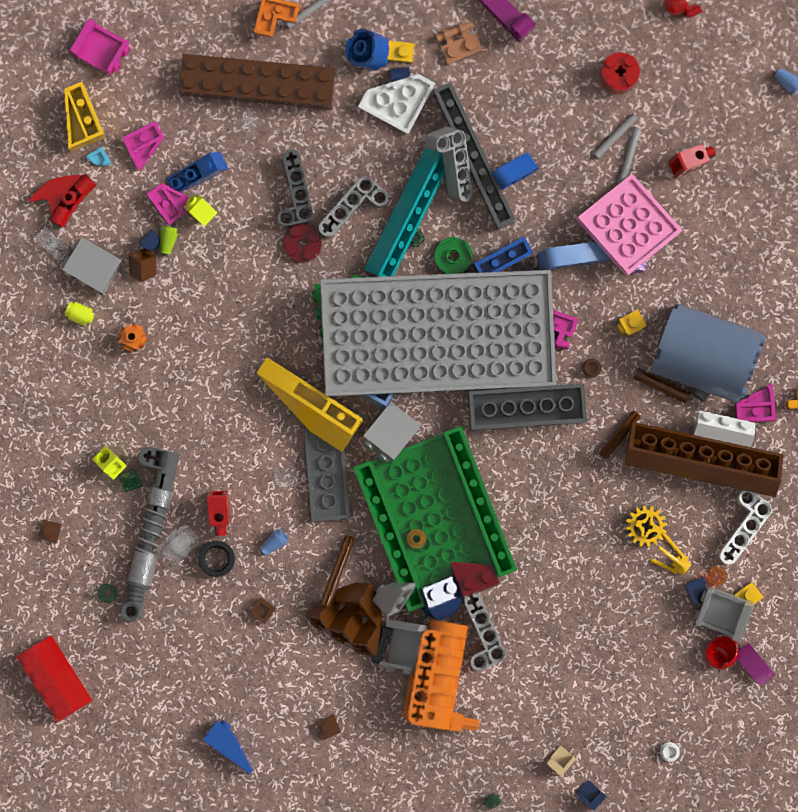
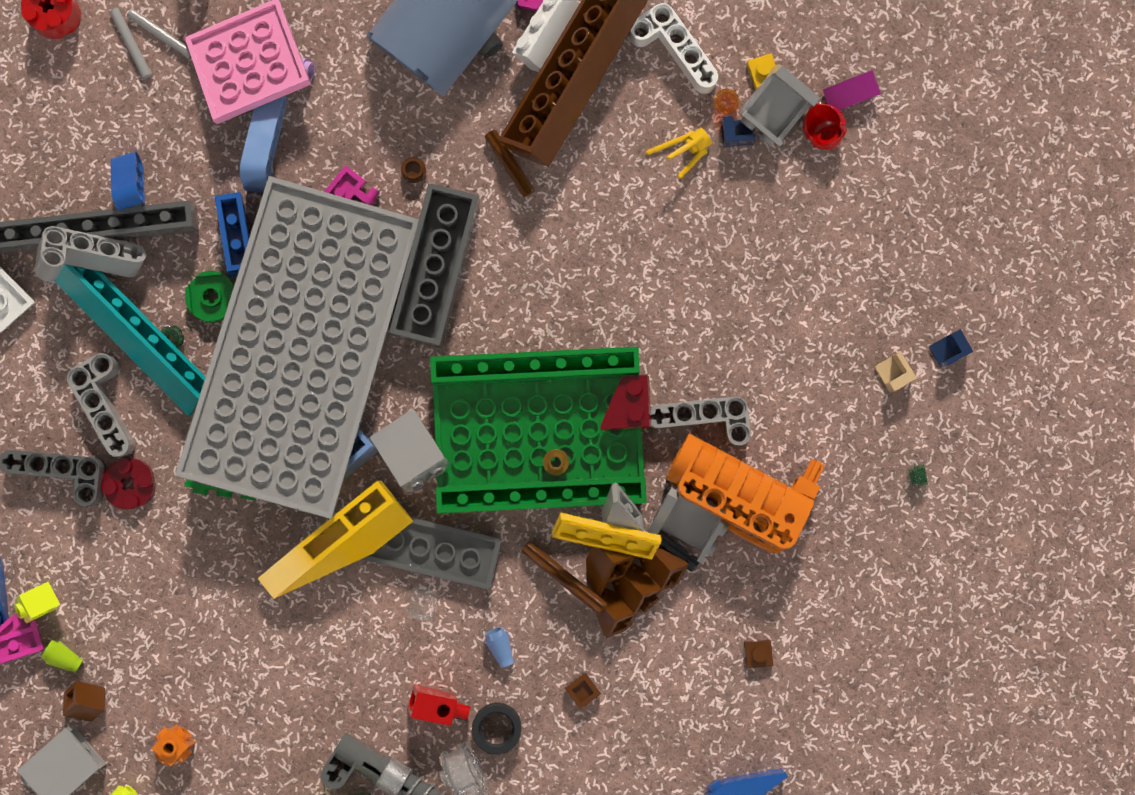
camera: 70 degrees left, 0 degrees up
(150, 242) = (56, 681): dark blue brick -> none
(376, 591) = (606, 536): none -> yellow tile
(441, 598) = (643, 455): dark blue slope -> none
(631, 323) = (374, 102): yellow bracket -> none
(642, 538) = (626, 161): yellow gear -> none
(661, 385) = (465, 90): reddish brown pin -> none
(669, 752) = (926, 233): white plate -> none

